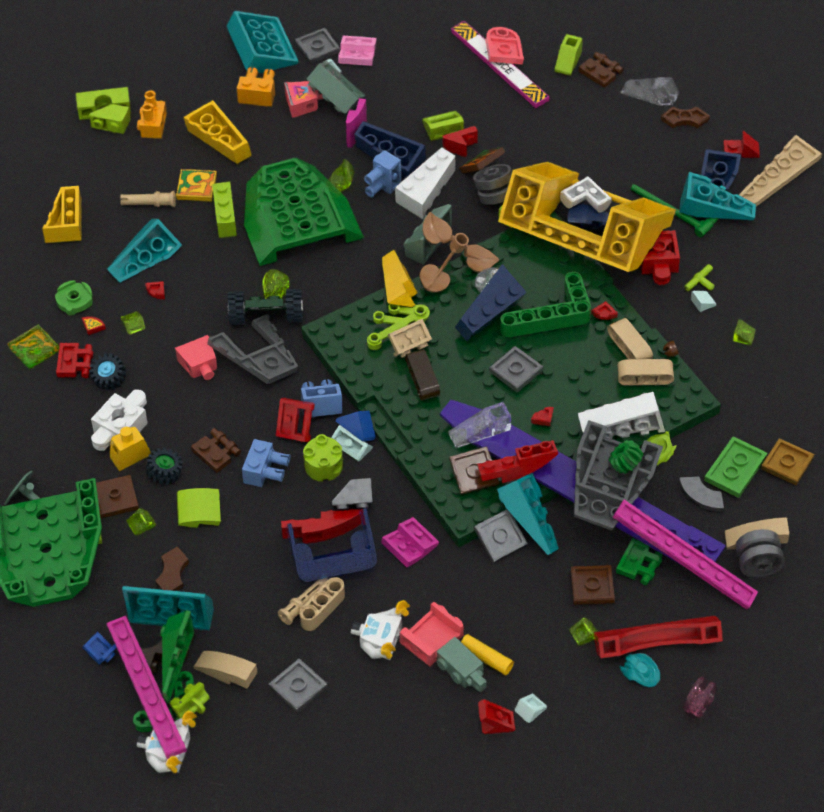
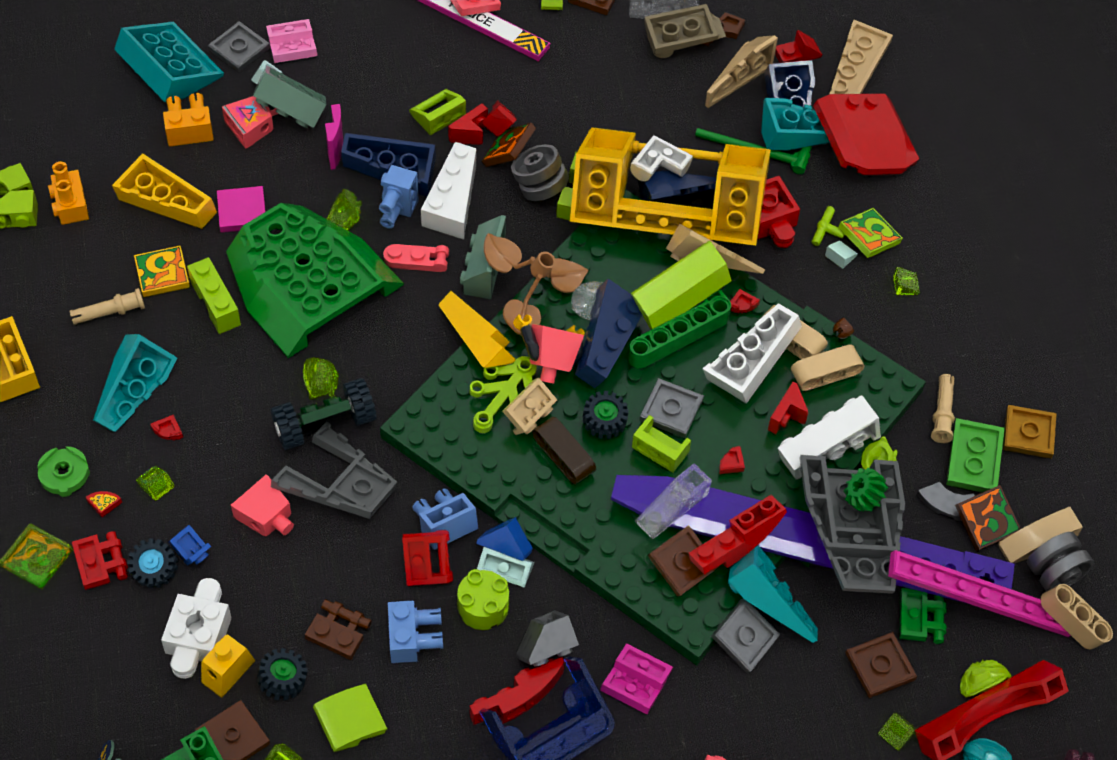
camera: 25 degrees left, 5 degrees up
(137, 368) = (189, 546): none -> blue bracket
(269, 153) = (239, 207): none -> dark pink tile
(381, 222) = (416, 257): none -> coral plate
(442, 302) = (550, 347): none -> coral torso
(463, 359) = (605, 415): none -> black wheel
(483, 139) = (499, 119): none -> red slope
(492, 389) = (659, 446): none -> lime panel
(555, 283) = (682, 285): none -> lime slope
(583, 263) = (686, 241): none -> tan wedge
(591, 345) = (754, 354): none -> white wedge
(600, 390) = (791, 407): none -> red slope
(655, 110) = (682, 29): none -> dark tan slope
(665, 613) = (982, 677): none -> lime hat
(686, 150) = (745, 66): none -> tan wedge
(722, 509) = (987, 517): none -> tile
(724, 433) = (943, 416): none -> tan pin
(732, 291) = (870, 232): none -> tile
(754, 583) = (1076, 616): none -> tan beam
(762, 218) = (866, 133): none -> red wedge

